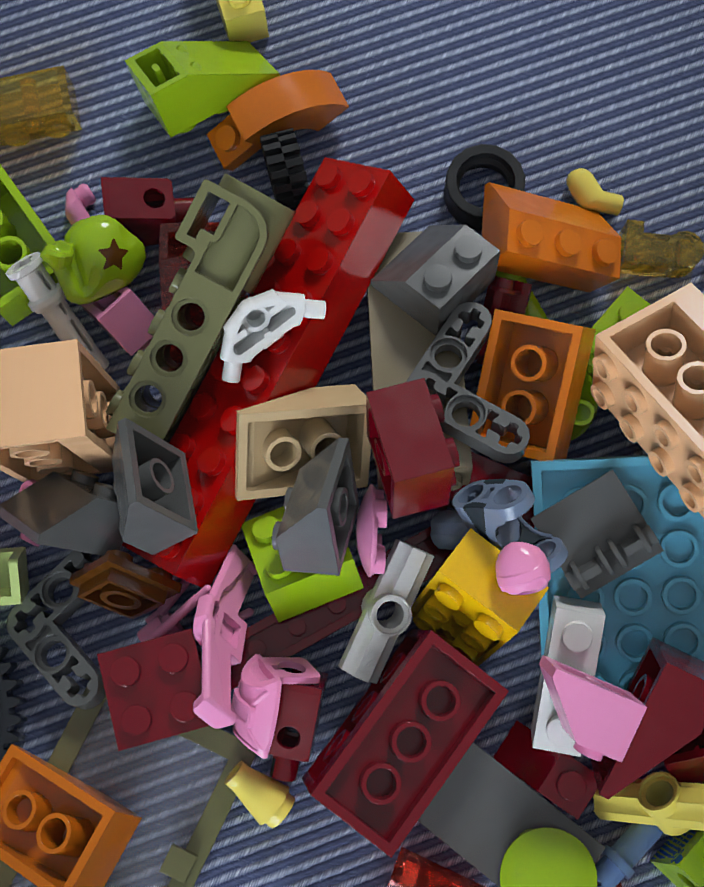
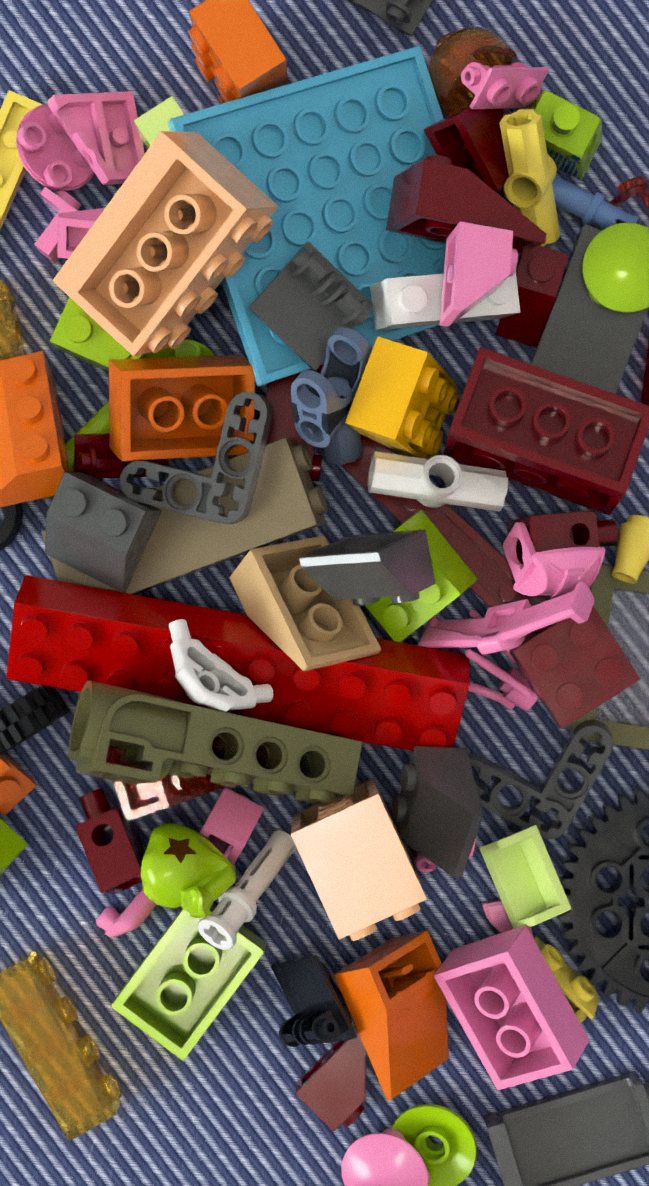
camera: 110 degrees left, 10 degrees up
(123, 585) = (490, 733): reddish brown piece -> none
(151, 490) = (400, 729): dark grey slope -> none
(370, 517) = (361, 519): bright pink dish -> none
(410, 447) = (293, 496): dark red brick -> none
(522, 569) = (371, 364): bright pink piece -> none

